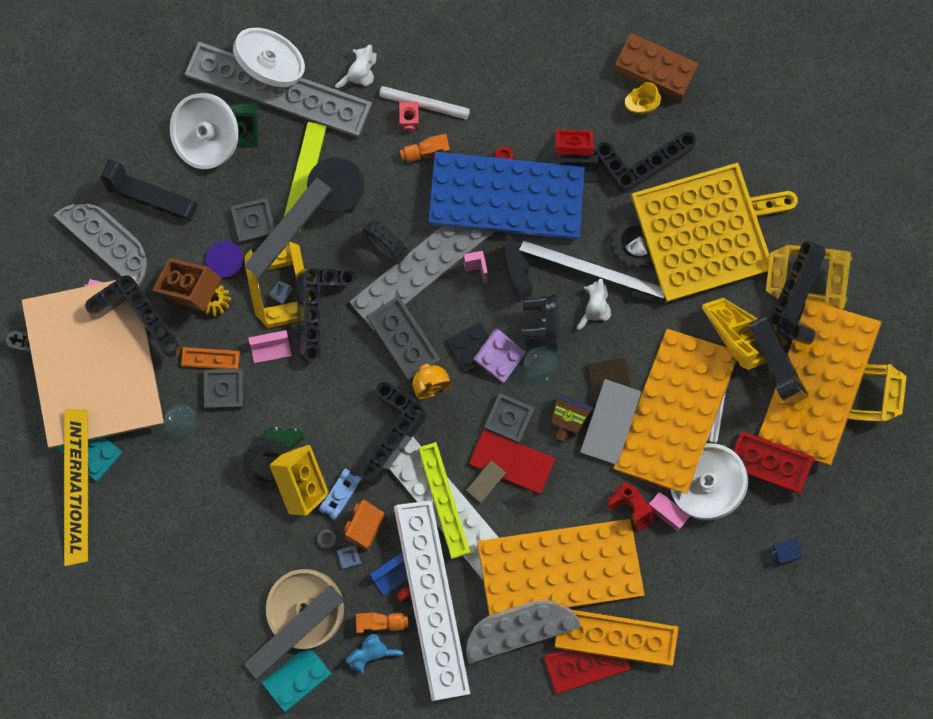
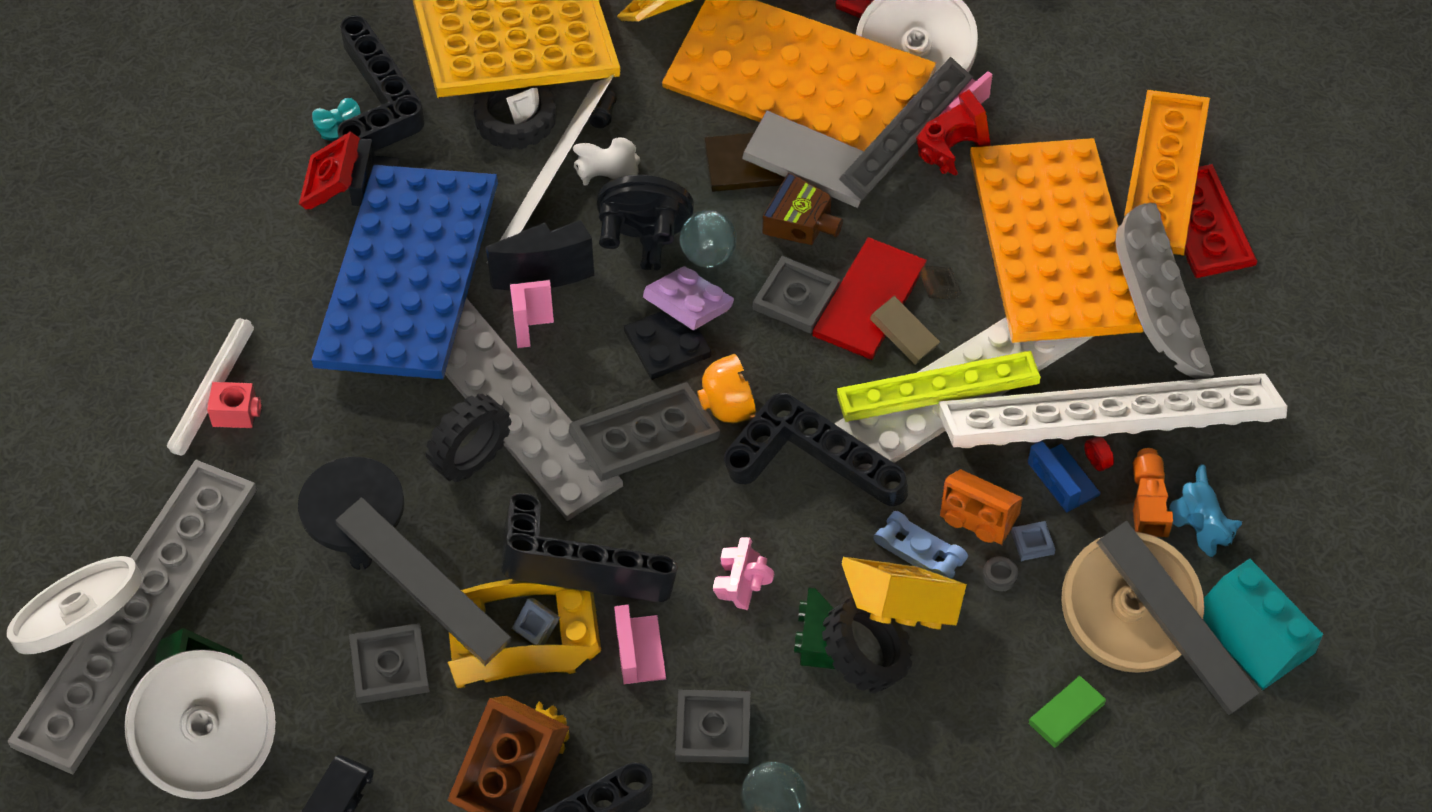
camera: 85 degrees left, 20 degrees down
(210, 358) = (654, 741): orange tile -> none
(225, 259) = (454, 716): dark purple tile -> none
(242, 575) = (1067, 711): none -> bright green tile
(307, 160) = (313, 578): neon yellow tile -> none
(315, 399) = (747, 574): none -> bright pink hips
(360, 70) = (130, 472): white animal -> none
(426, 149) = (301, 380): orange piece -> none
(504, 152) = (327, 277): red tile -> none
(619, 136) = (327, 121): none -> teal piece
(635, 477) = (904, 128): none -> dark grey tile
(643, 99) = (271, 75): yellow piece -> none
(651, 63) = (219, 62): dark orange brick -> none

